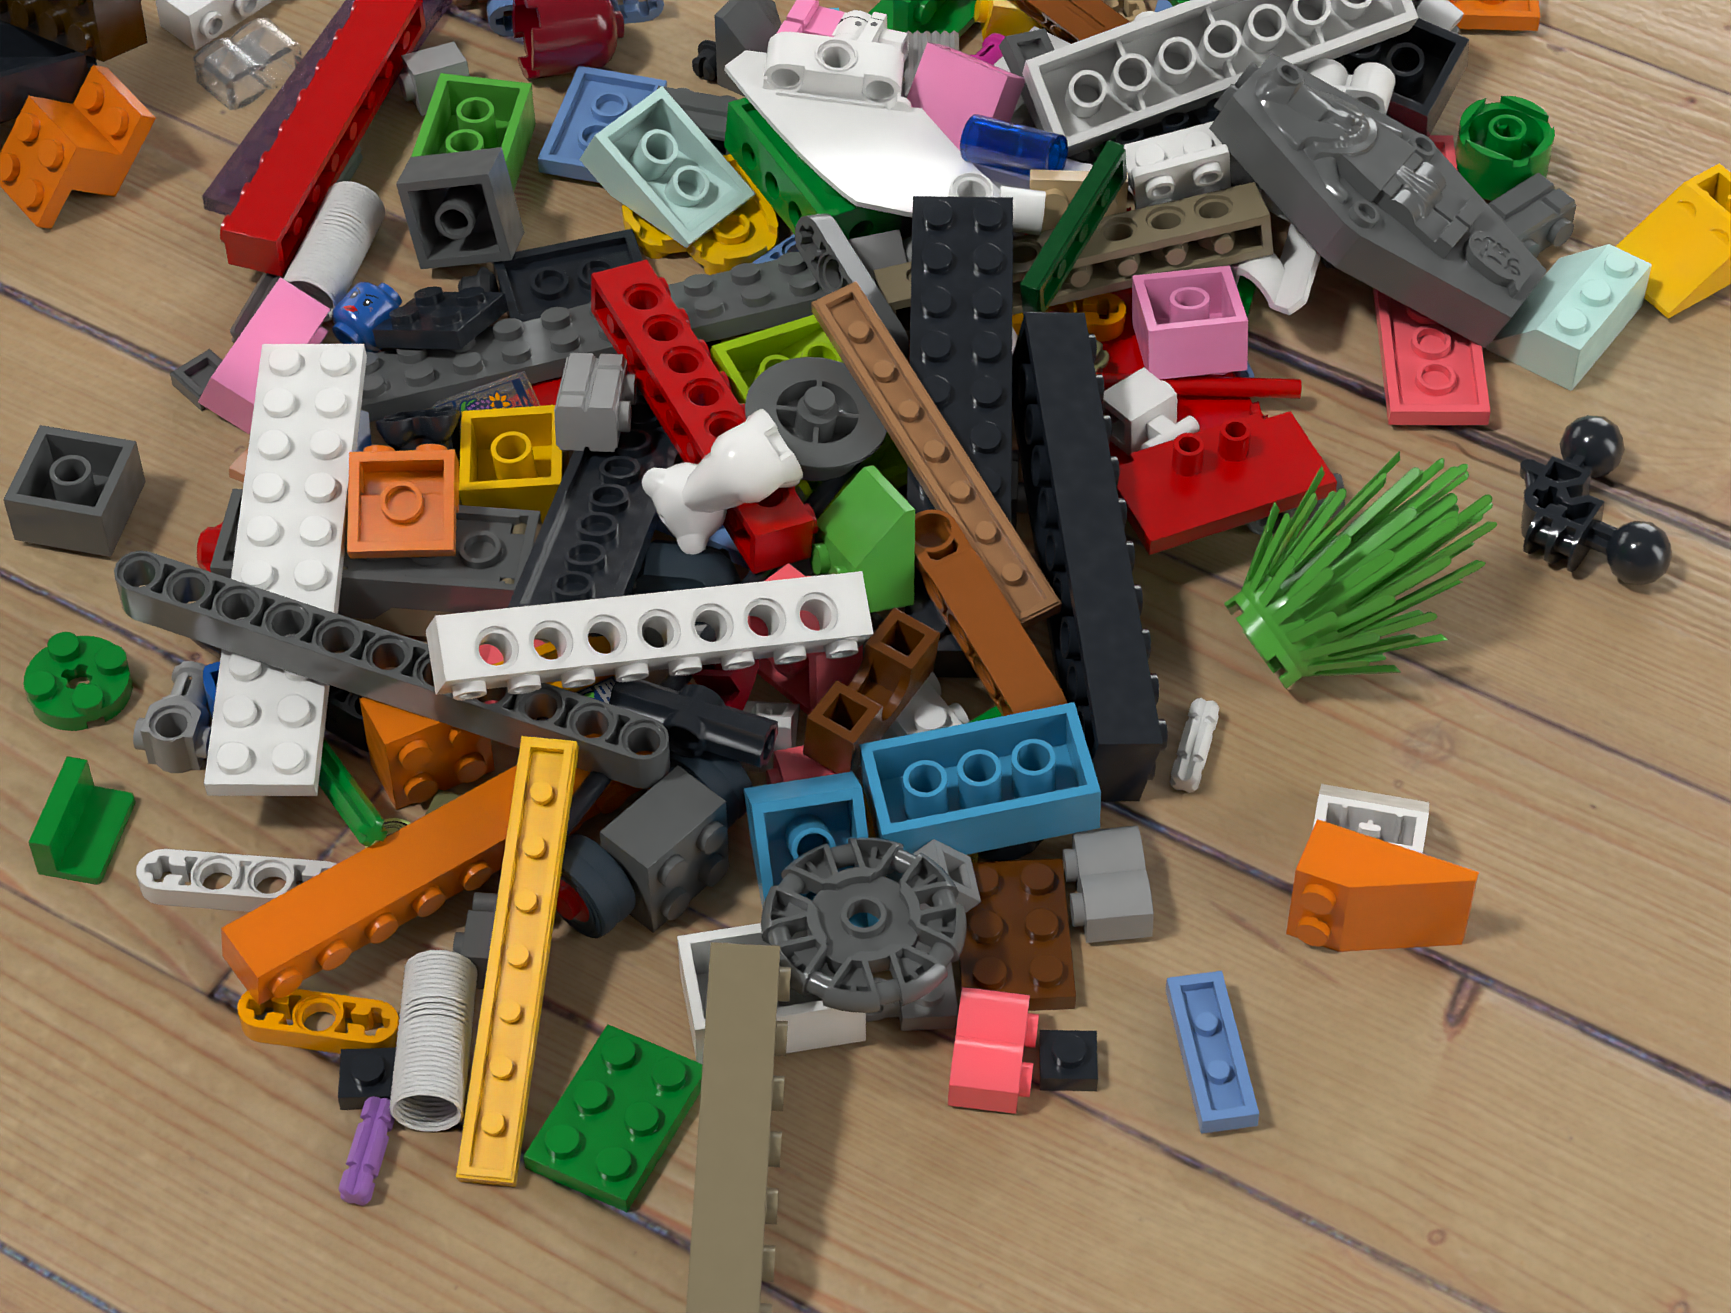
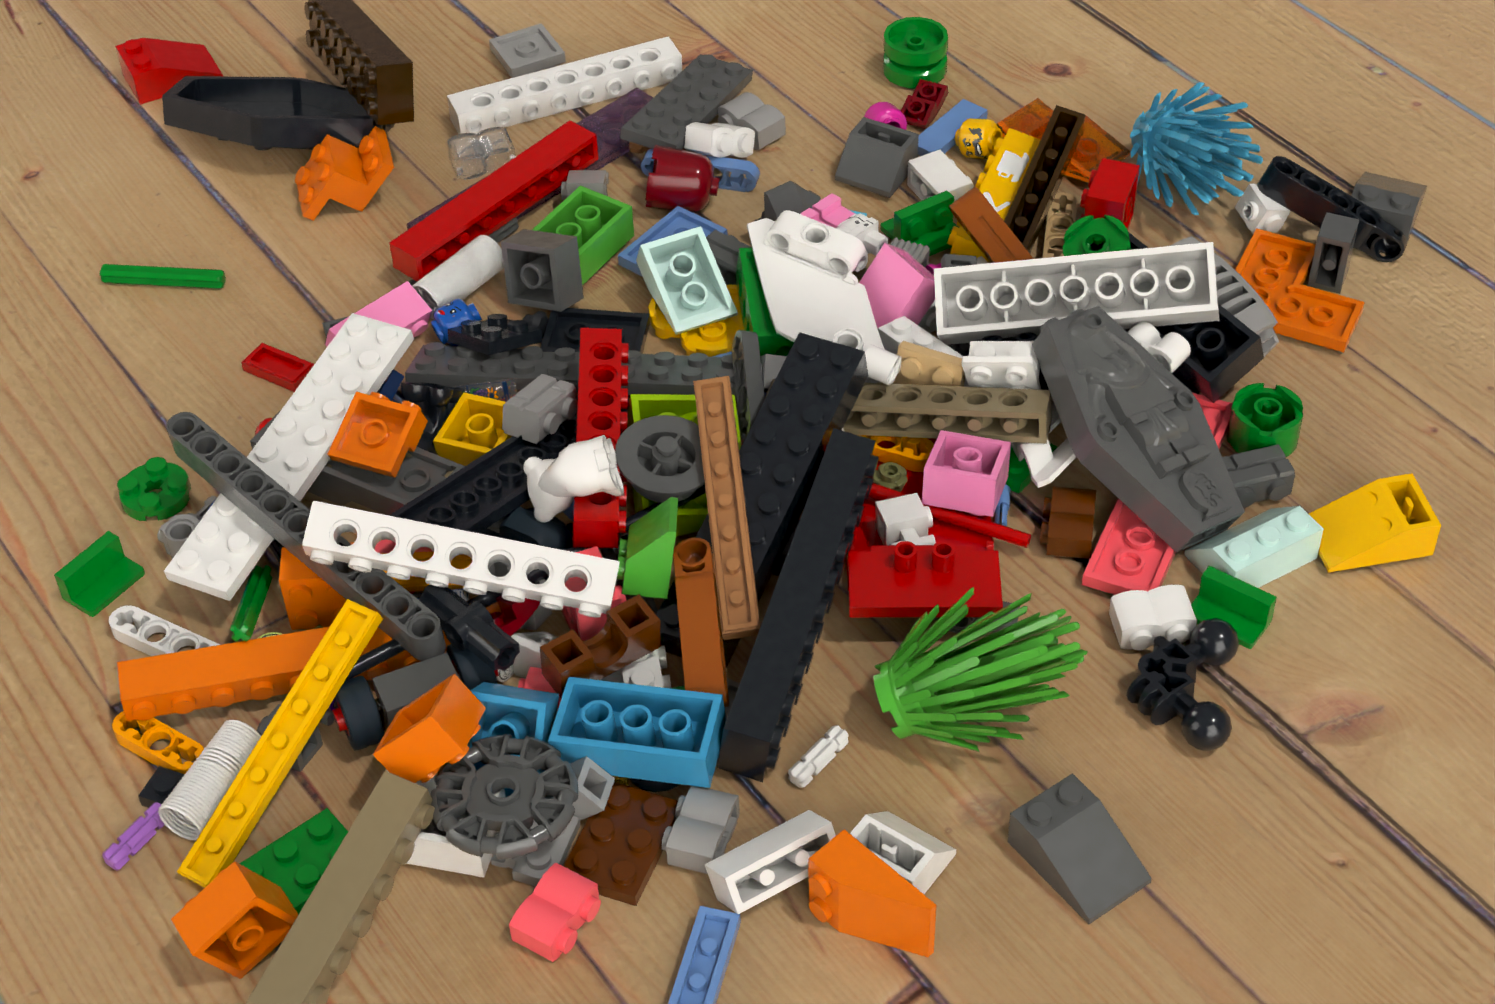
camera: 25 degrees right, 5 degrees down
(75, 490) = (217, 375): dark grey brick -> none
(162, 454) = (277, 366): none -> red tile
(603, 1203) = (235, 920): none -> orange brick
(734, 871) = (431, 731): none -> orange piece
(1011, 146) = (903, 323): clear blue pin -> none
(1068, 1060) = (607, 938): black plate -> none
(1074, 229) = (903, 385): dark green tile -> none
(1227, 892) = (768, 862): none -> white brick
(1335, 348) = (1069, 523): none -> reddish brown brick
(1500, 438) = (1144, 615): none -> white brick
(1569, 752) = (1077, 848): none -> dark grey slope
(1581, 387) = (1235, 602): none -> green panel

